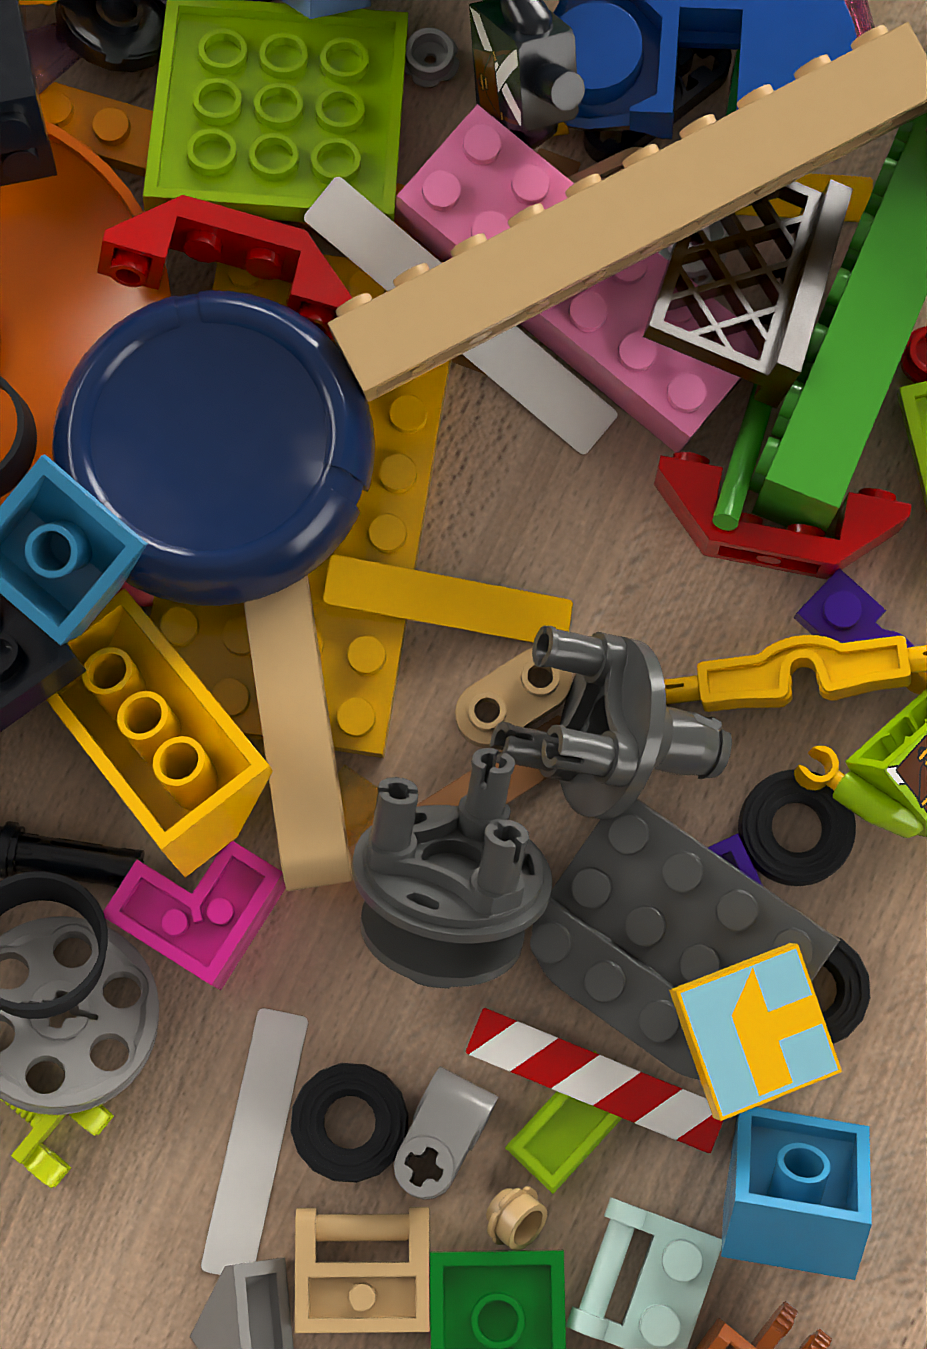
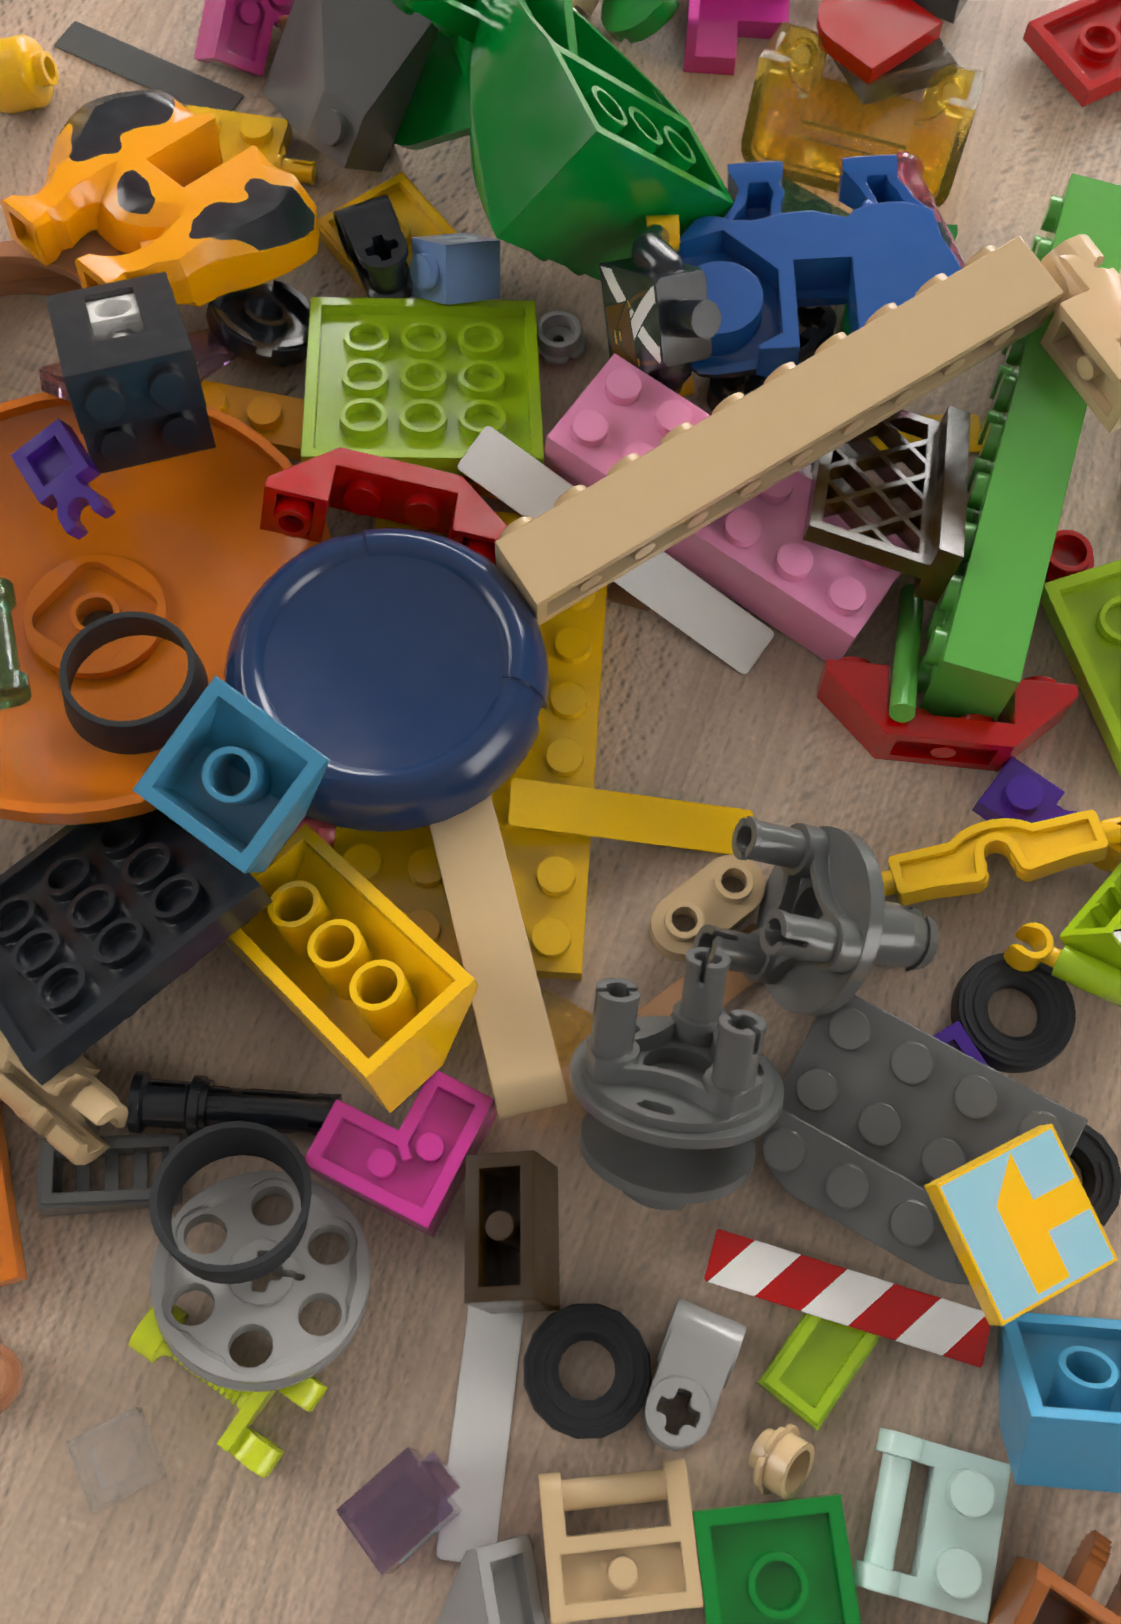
camera: 10 degrees left, 10 degrees down
(172, 1225) = (401, 1508): none -> clear purple brick
(290, 995) = (511, 1233): none -> dark brown brick

